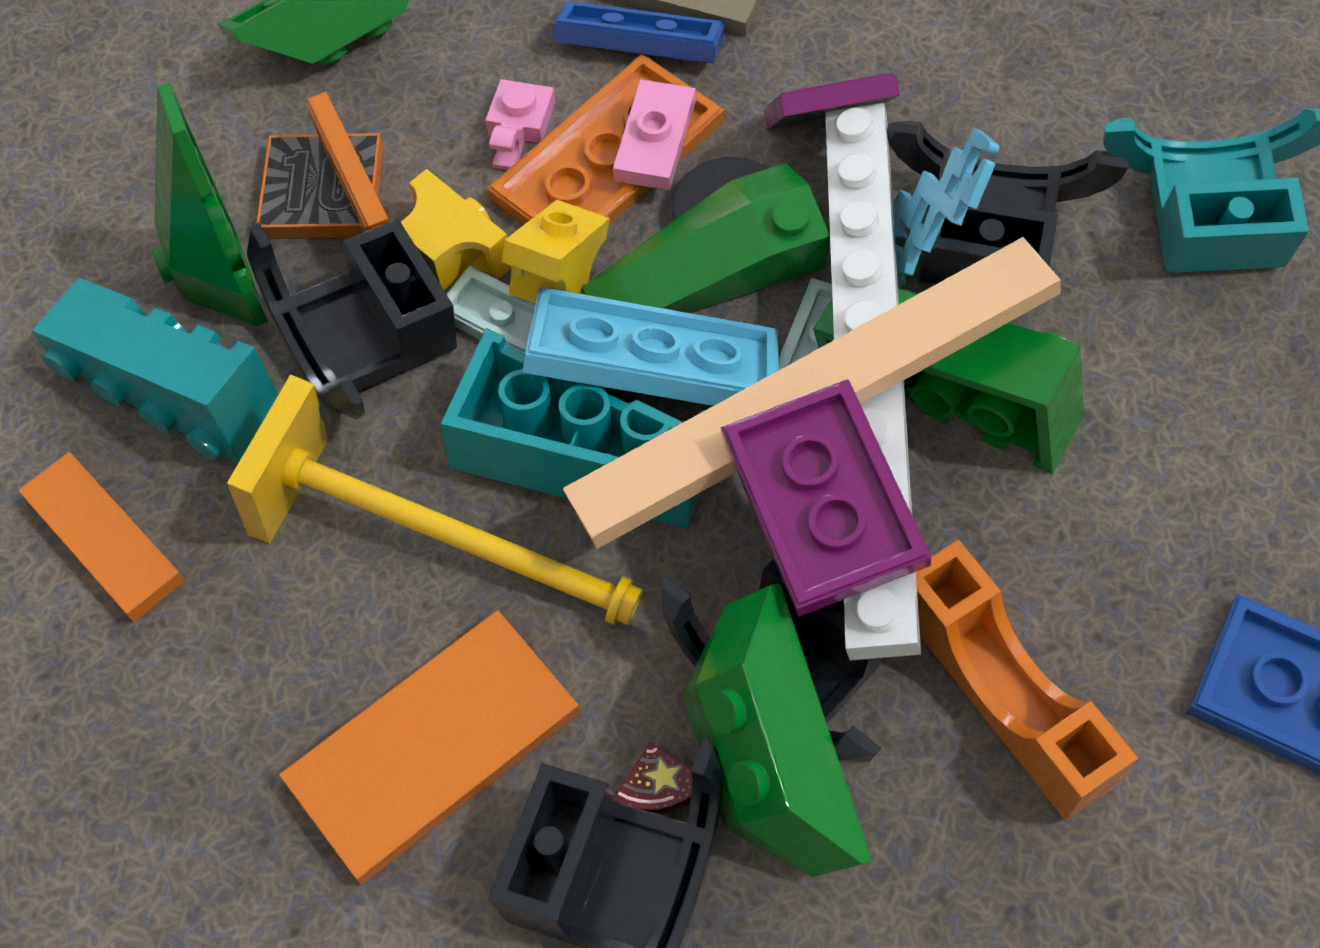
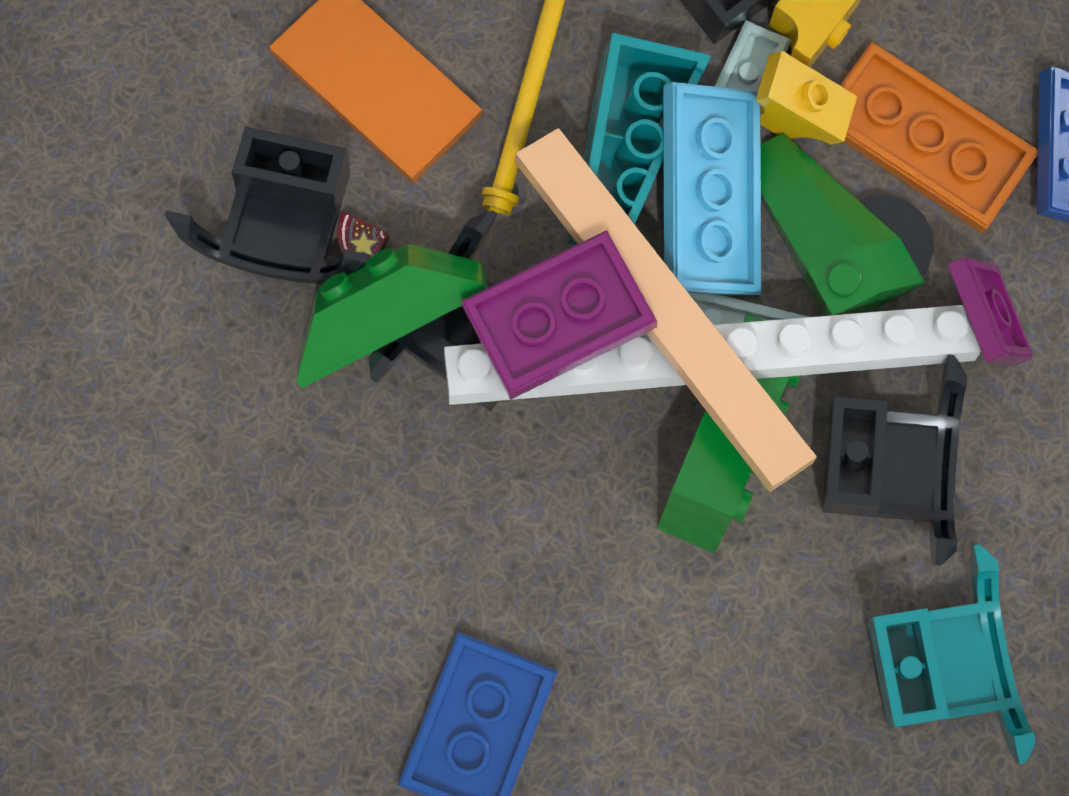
camera: 75 degrees right, 15 degrees up
(515, 117) = (955, 55): bright pink plate -> none
(654, 134) = (942, 169): bright pink plate -> none
(944, 201) = (865, 394): medium azure piece -> none
(1053, 736) = (436, 507): orange arch -> none

